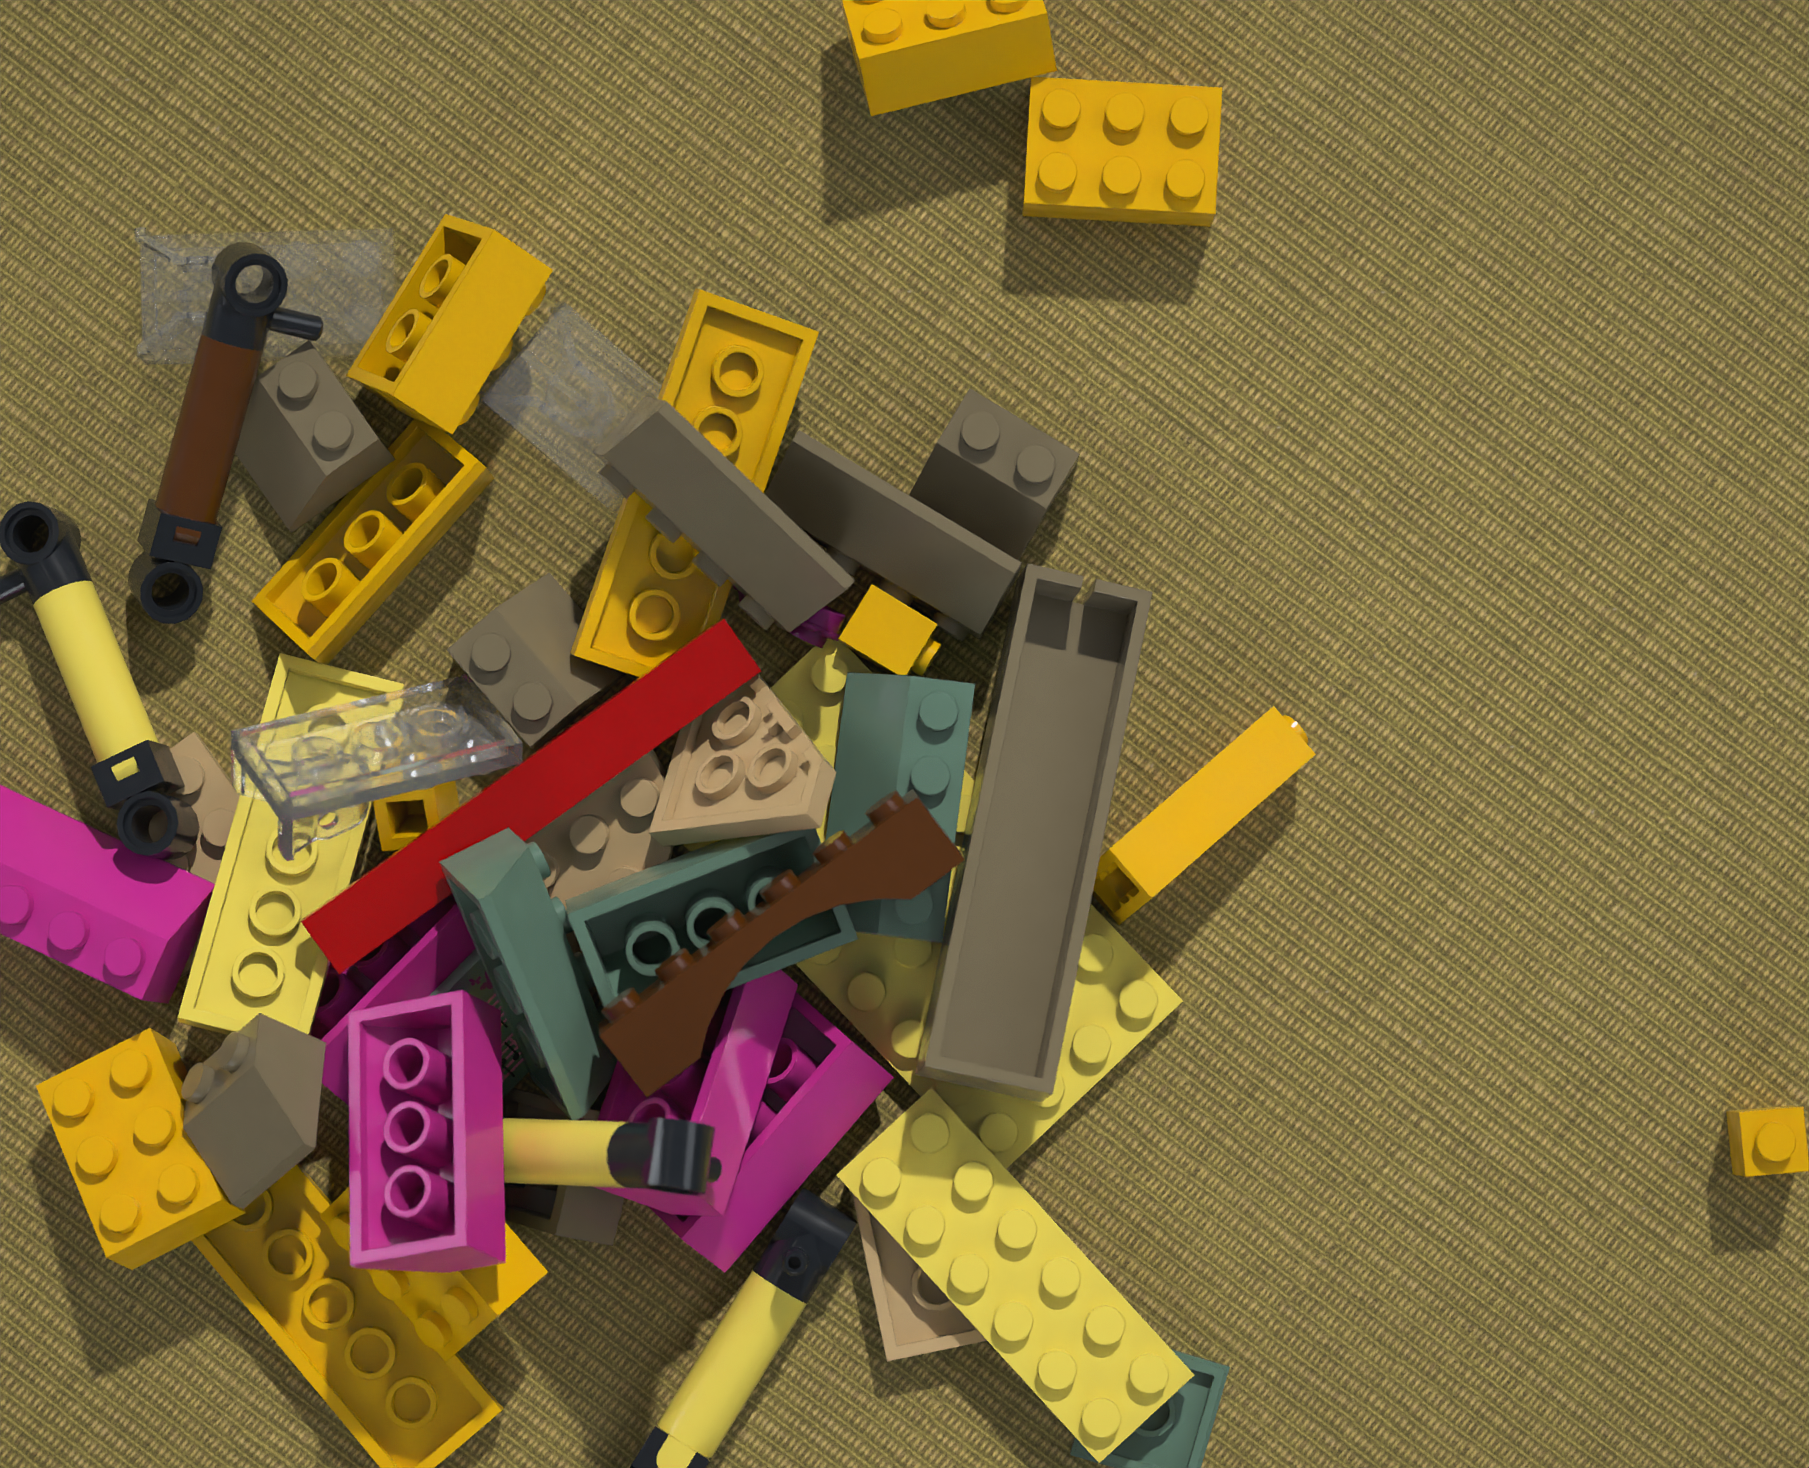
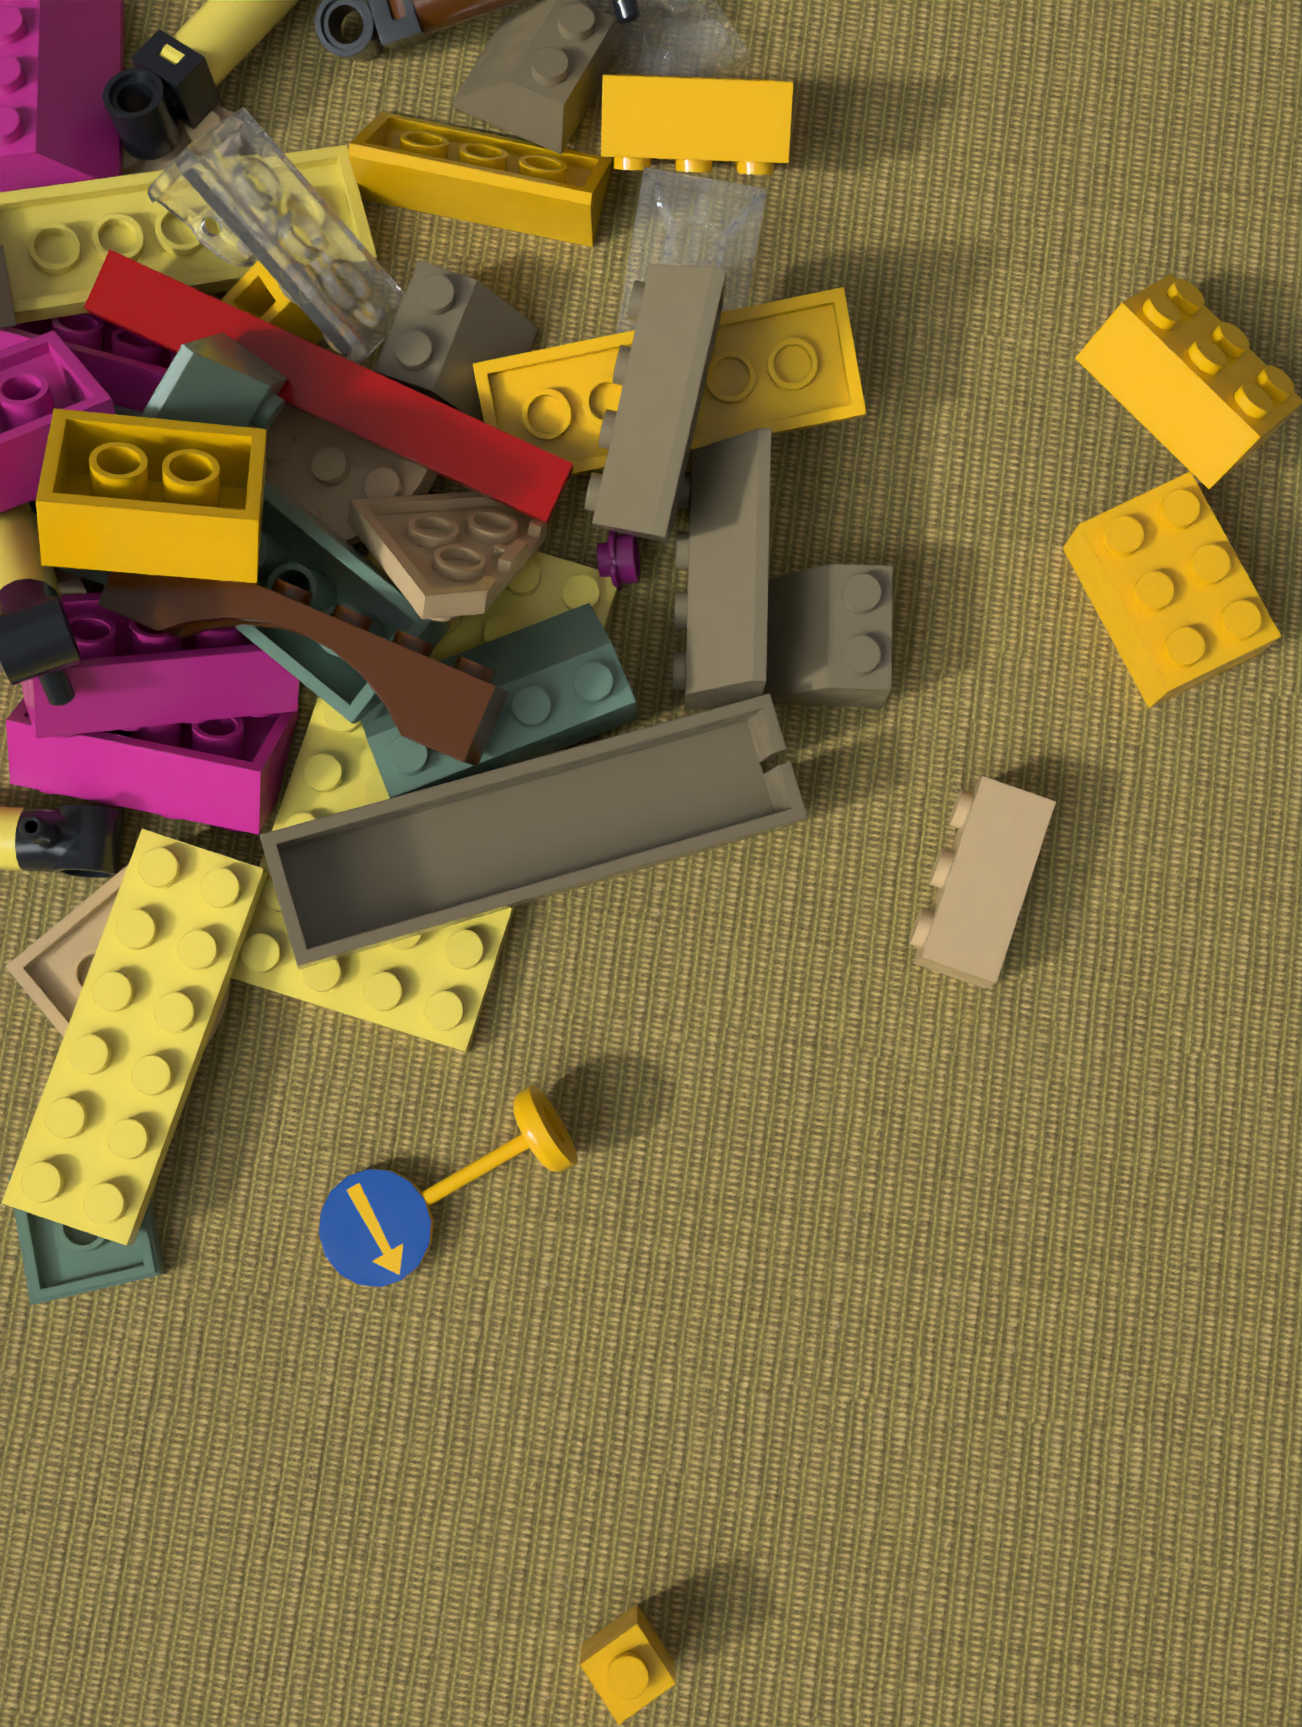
camera: 55 degrees right, 5 degrees down
(598, 993) = (152, 496): none -> yellow brick
(891, 634) = (643, 624): yellow brick -> none
(1199, 813) = (637, 970): yellow slope -> none
(1285, 470) = (981, 881): none -> tan brick
(1290, 1154) = (382, 1224): none -> piece

